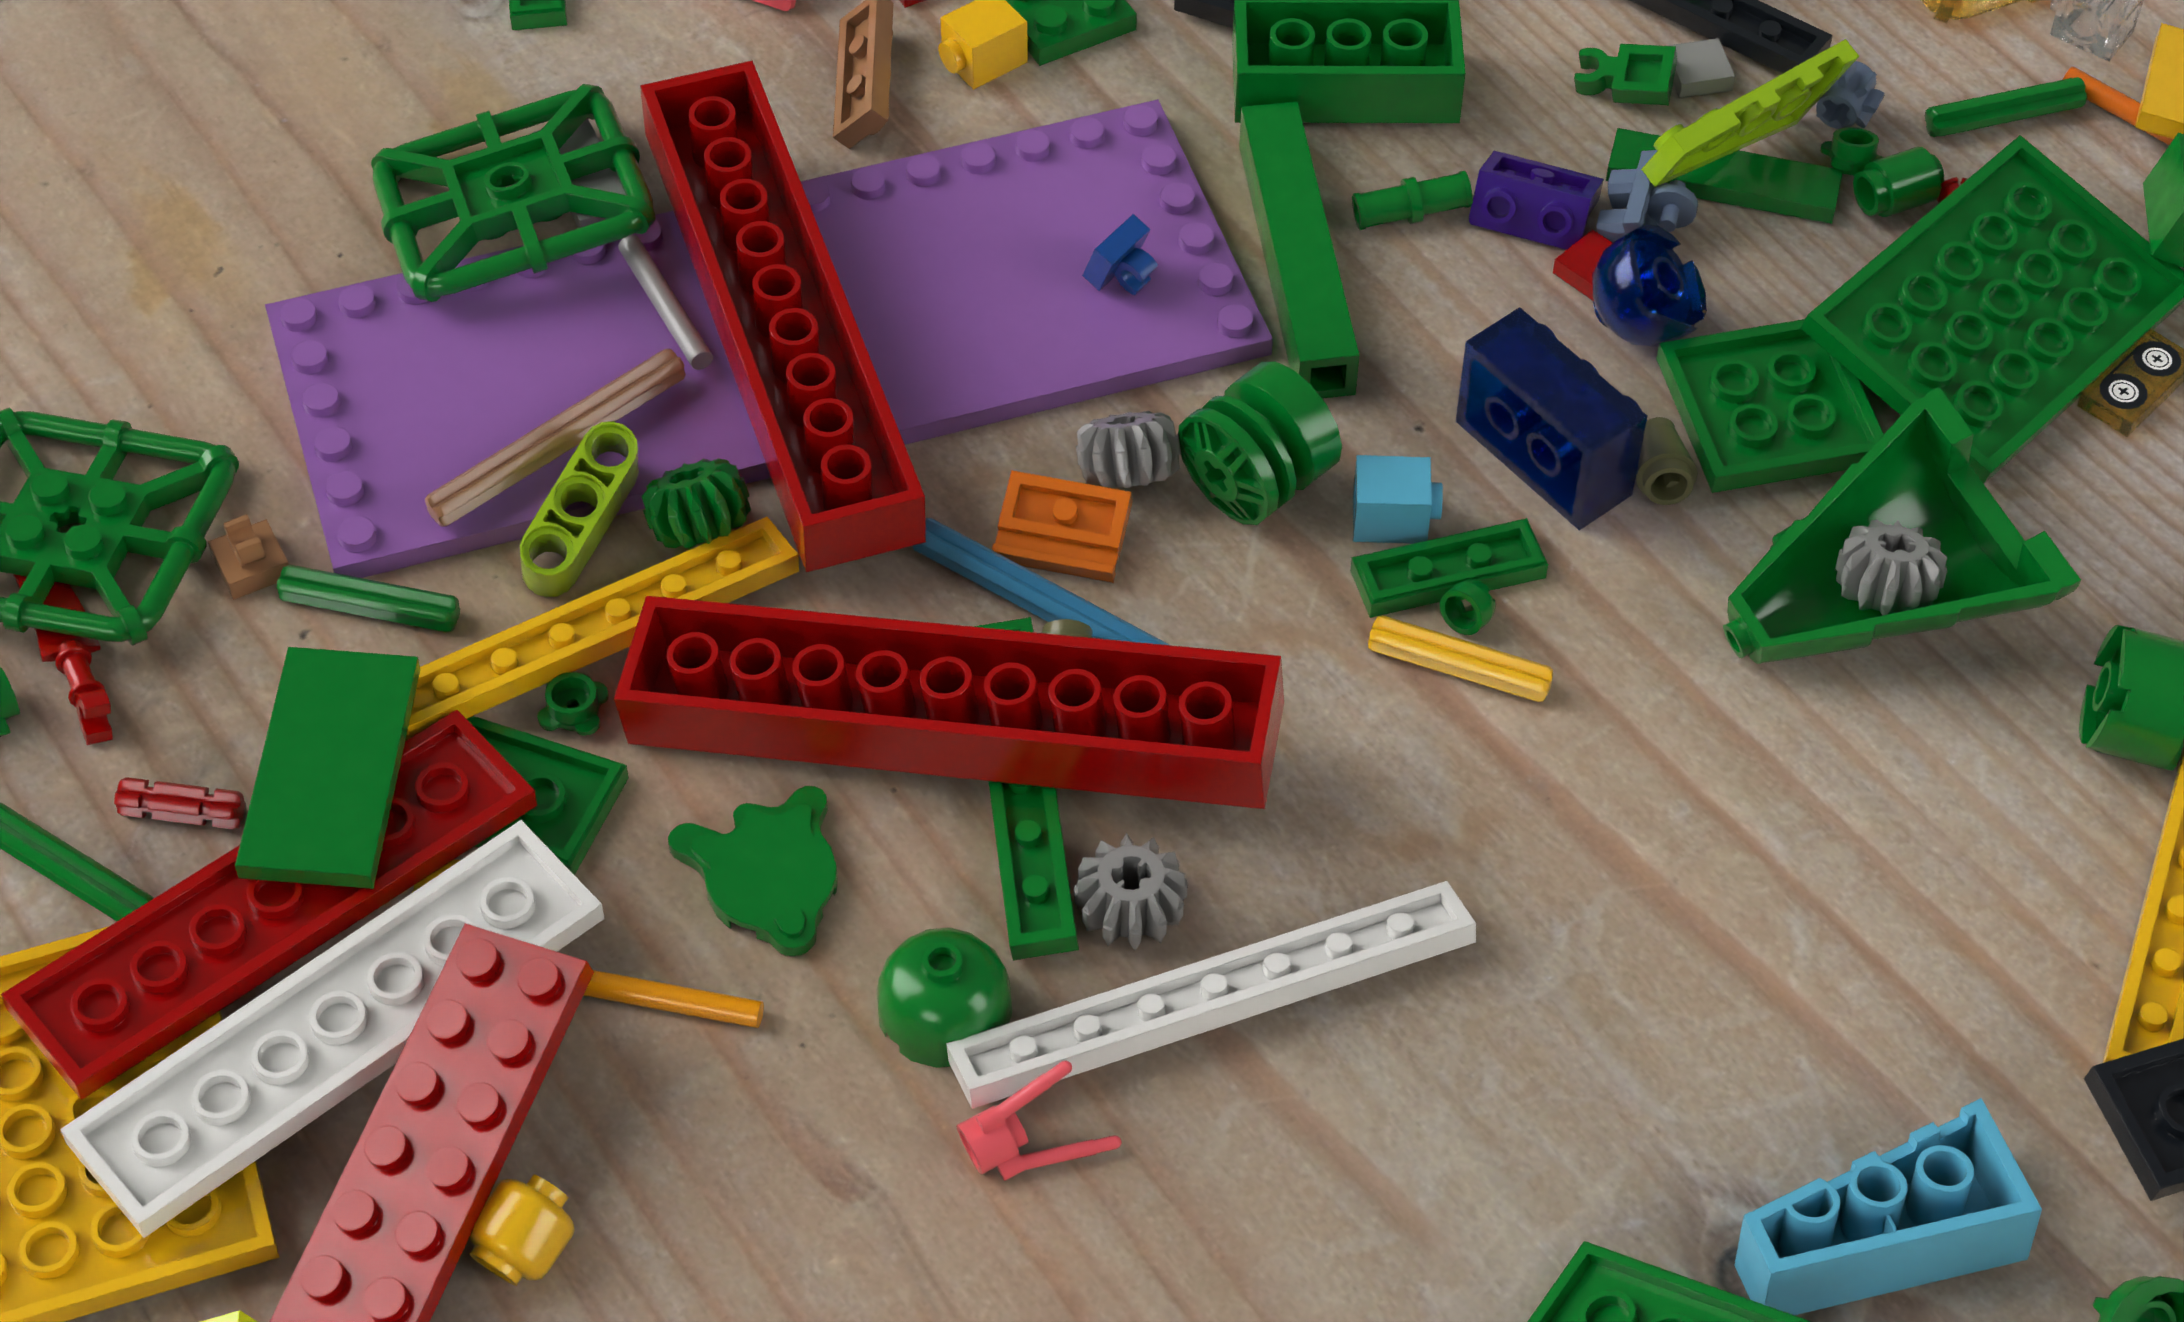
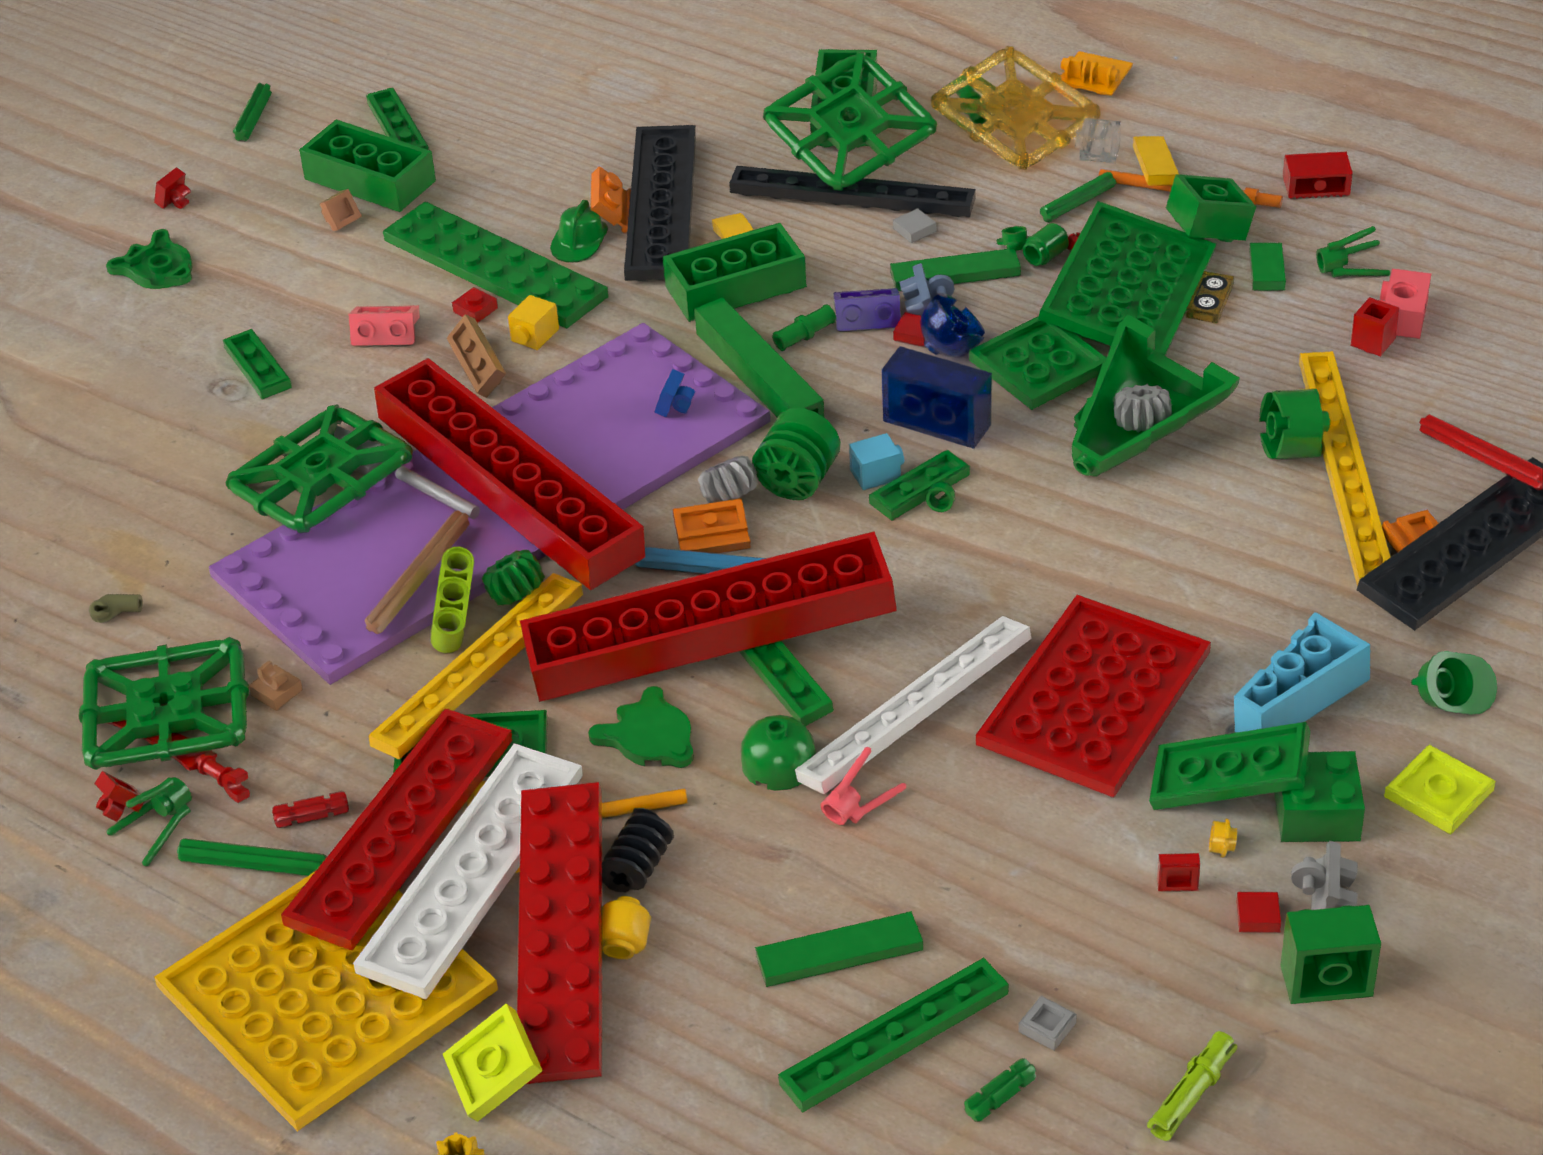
camera: 20 degrees left, 10 degrees down
(95, 319) = (113, 604): none -> olive arm
(329, 768) = (396, 753): green tile -> none
(368, 598) = (354, 682): green axle -> none
(572, 690) = (499, 692): green plate -> none
(614, 1092) = (636, 851): none -> black piece
(1130, 891) = (847, 674): light grey gear -> none
(1460, 658) = (949, 521): yellow axle -> none
(1525, 1097) = (1093, 695): none -> red plate
(1636, 76) = (885, 236): green plate -> none
(1665, 464) = (1005, 405): olive cone -> none
(1750, 117) = (960, 233): lime wing -> none
(1850, 98) = (997, 213): sand blue gear -> none

